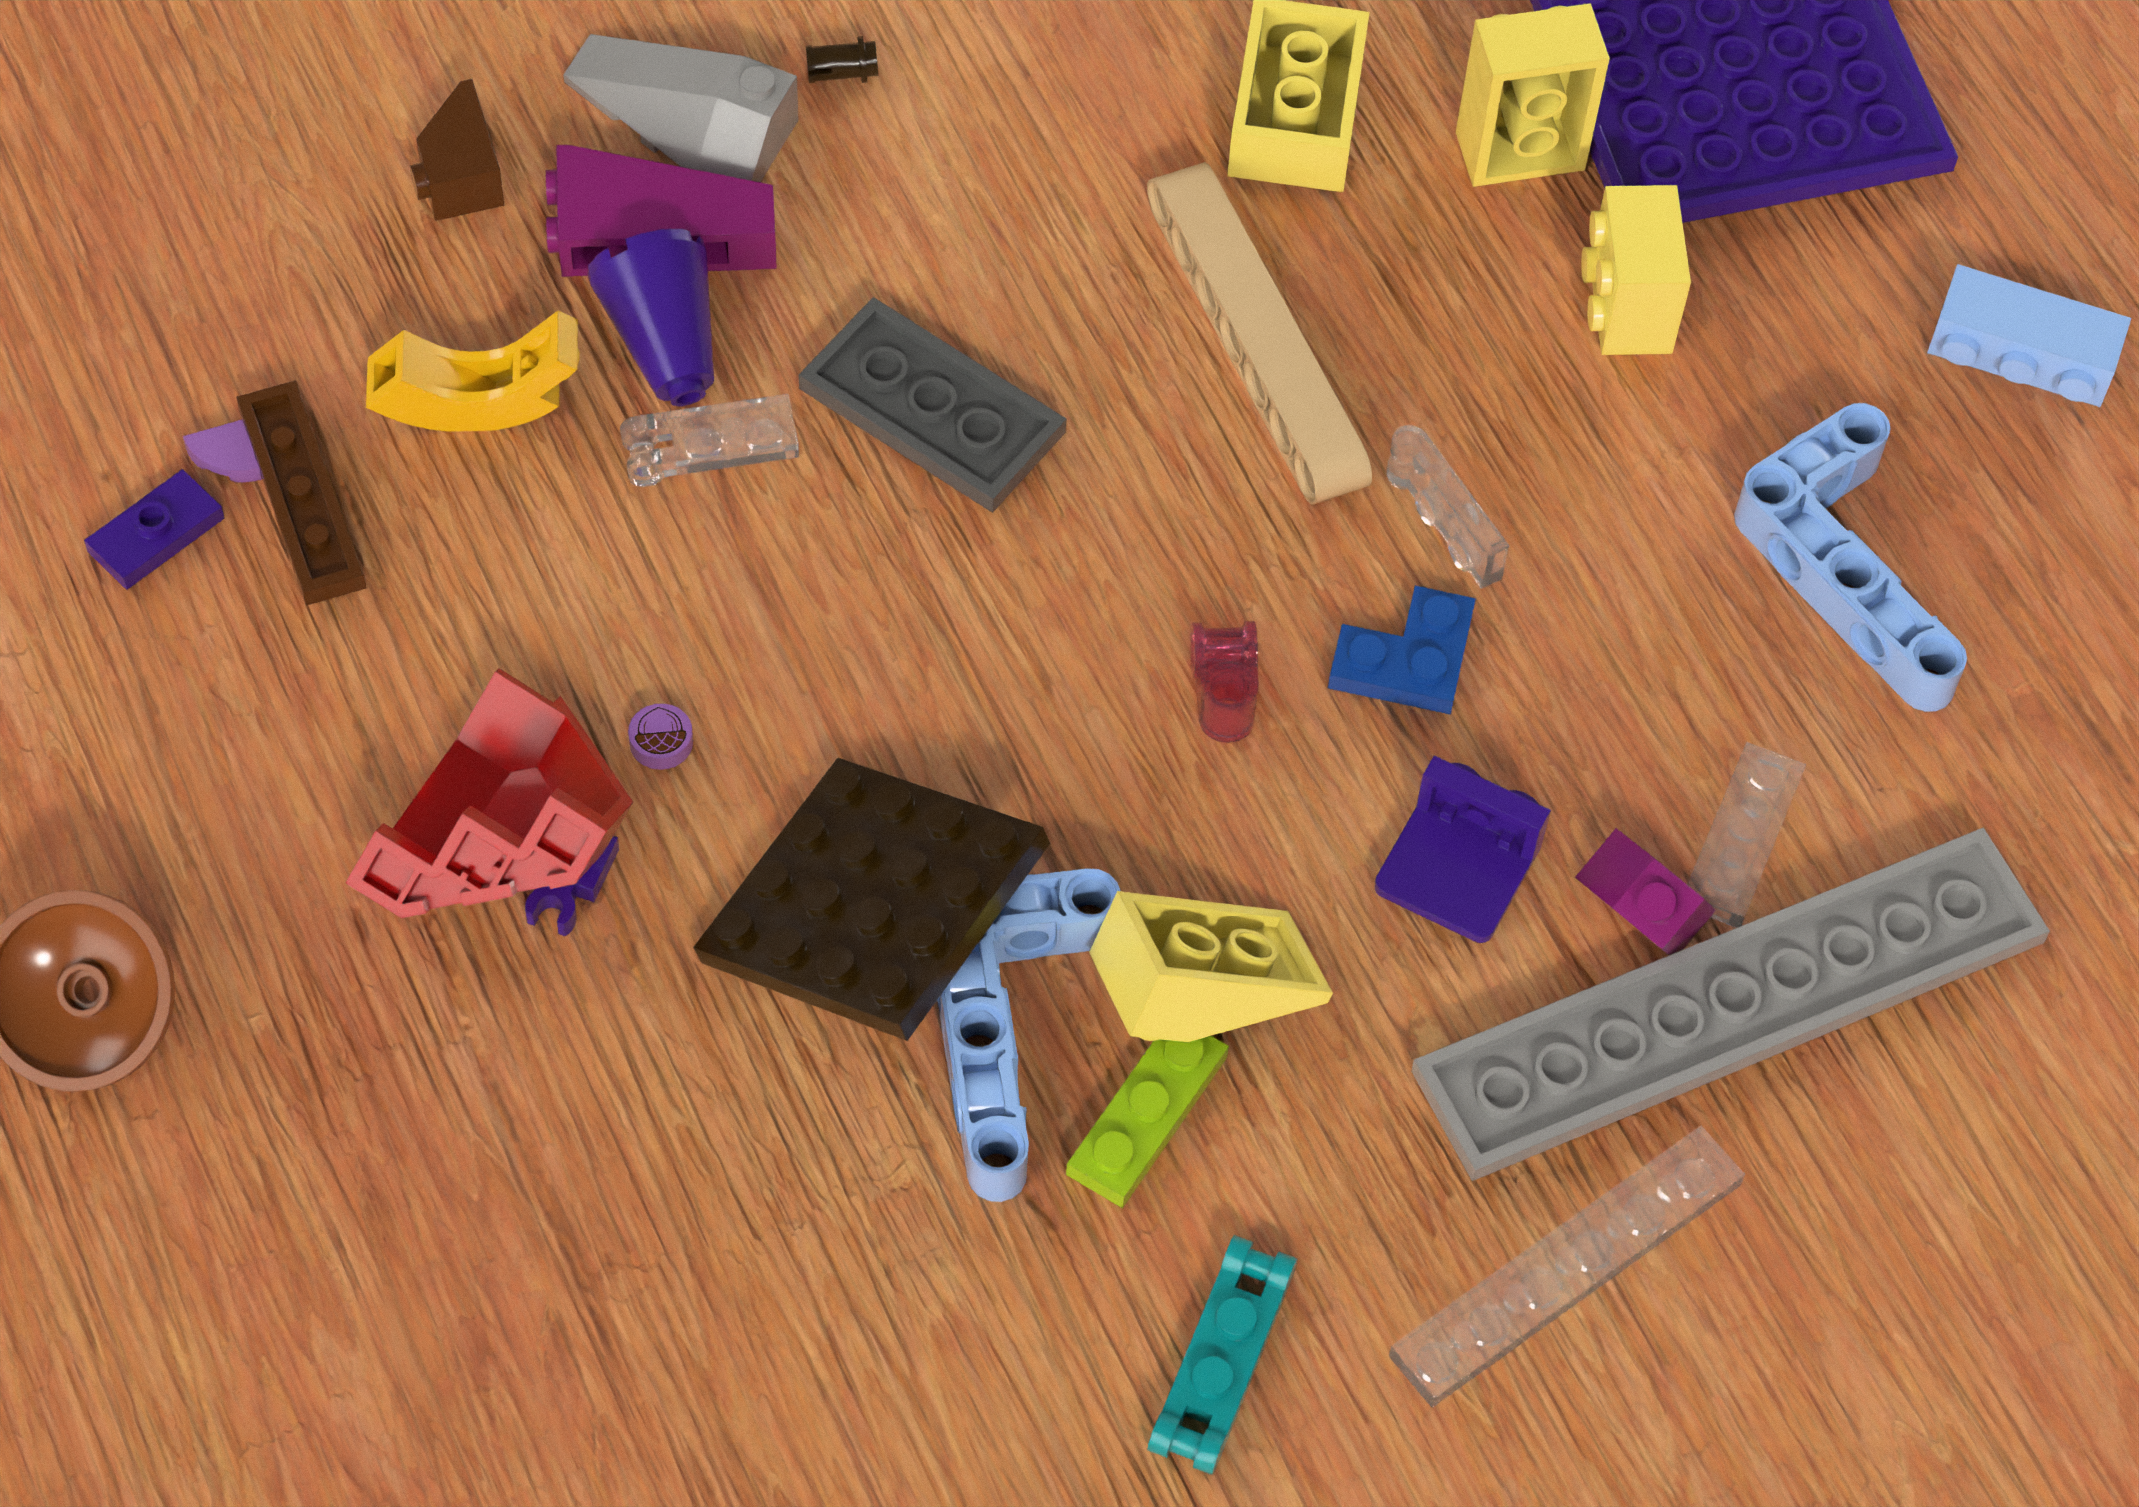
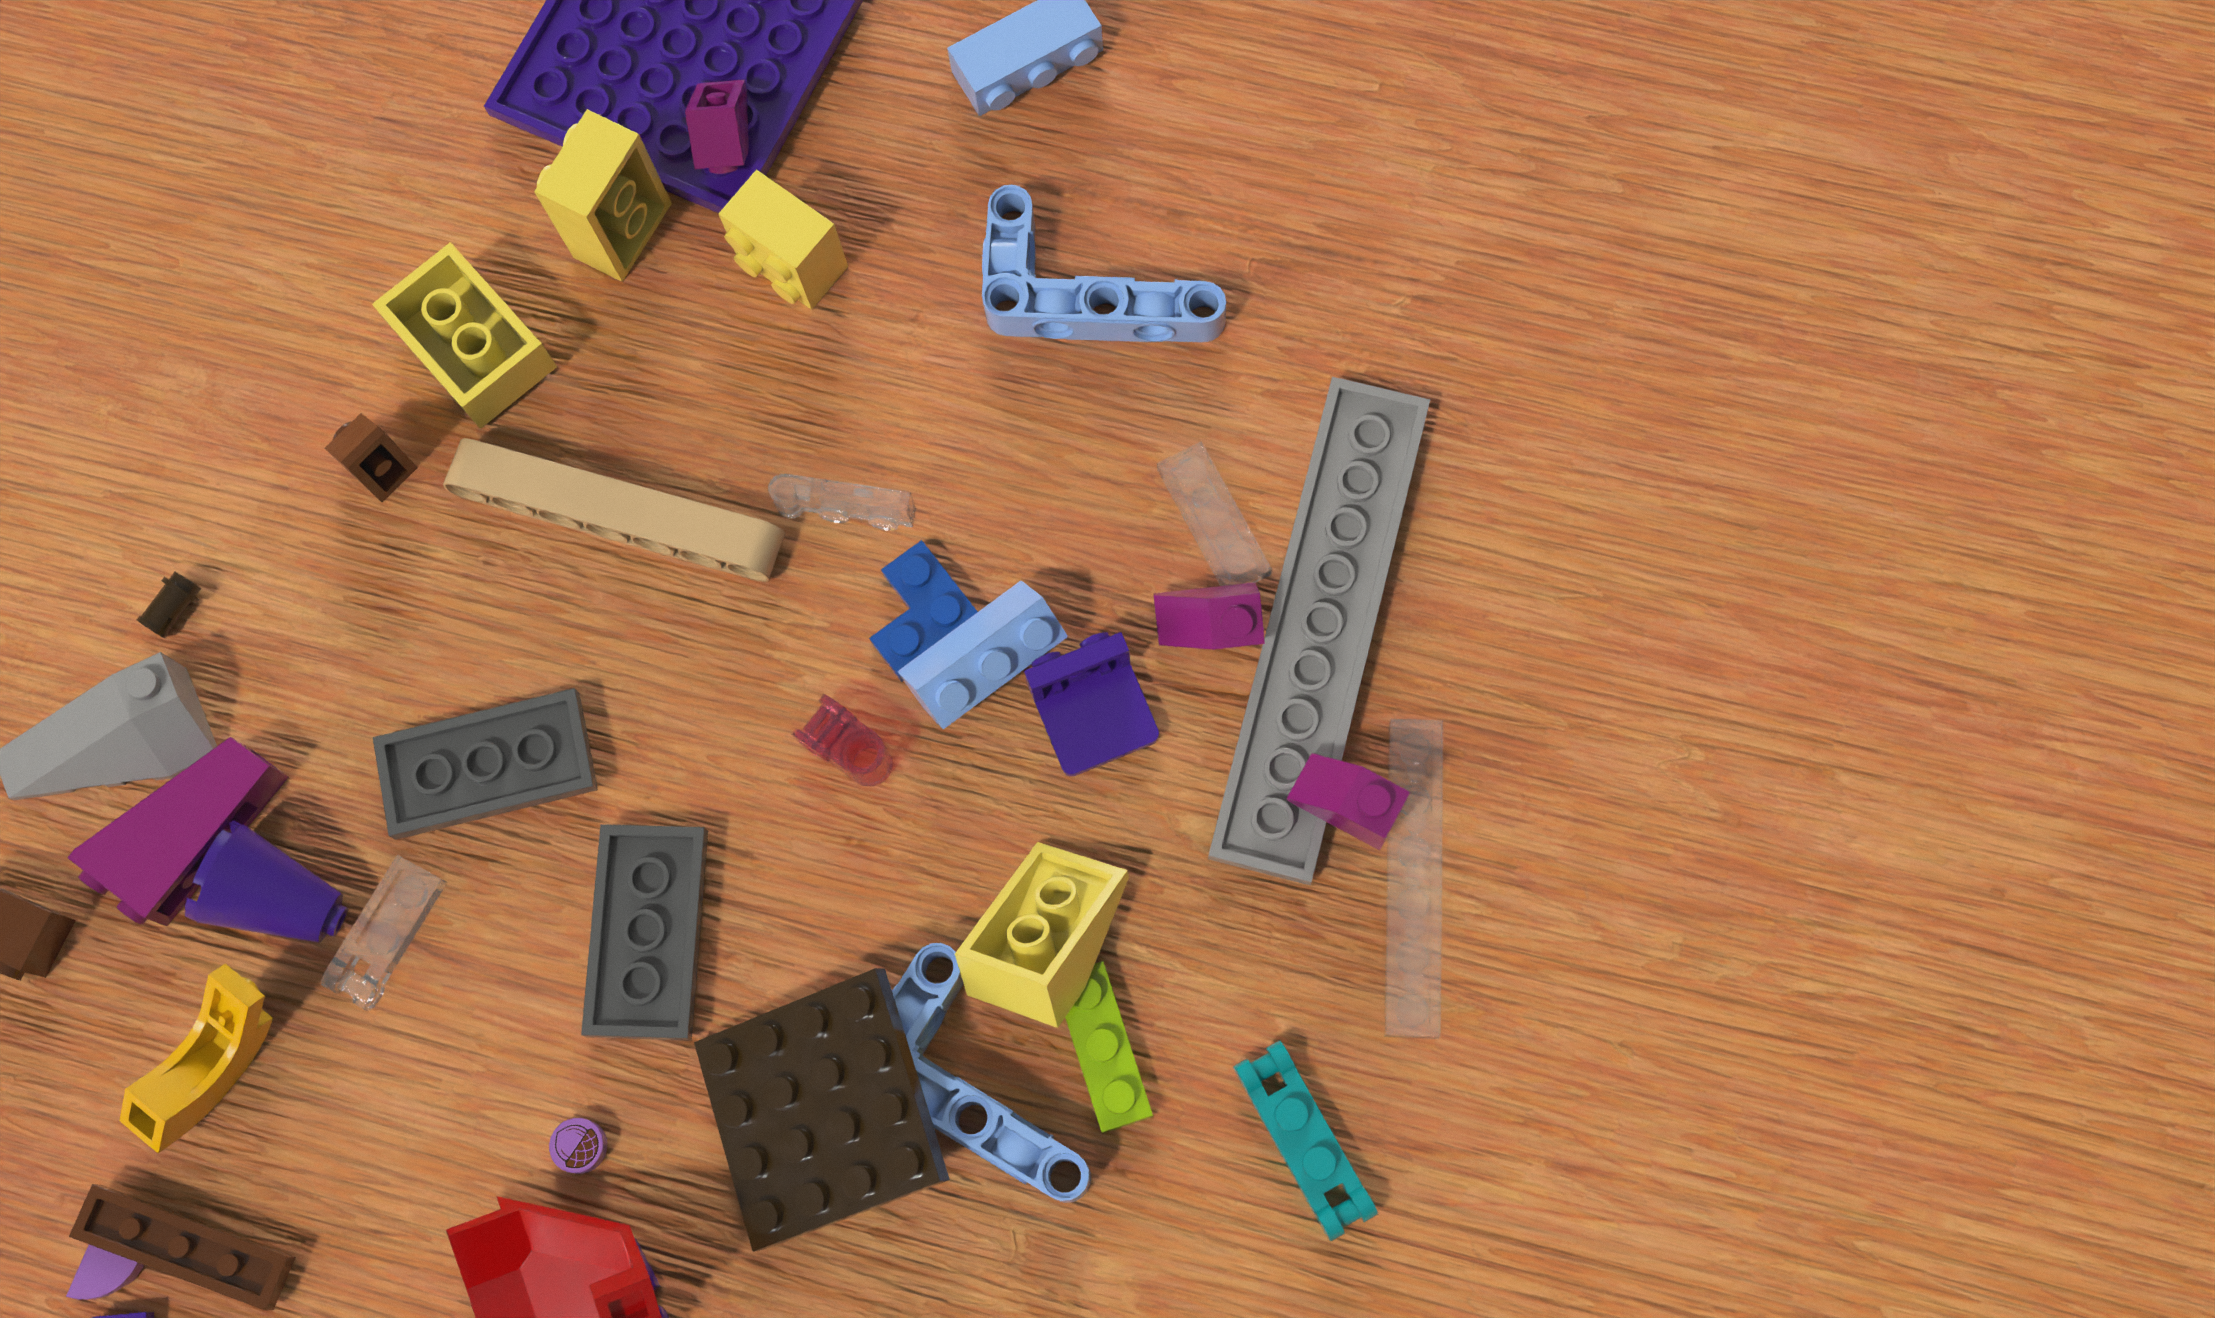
camera: 40 degrees left, 15 degrees up
(900, 644) = (645, 932): none -> dark grey plate
(1118, 110) = (371, 456): none -> reddish brown slope
(1417, 720) = (982, 654): none -> light blue brick
(1587, 1140) = (1349, 798): none -> magenta slope
(1689, 137) = (718, 125): none -> magenta slope

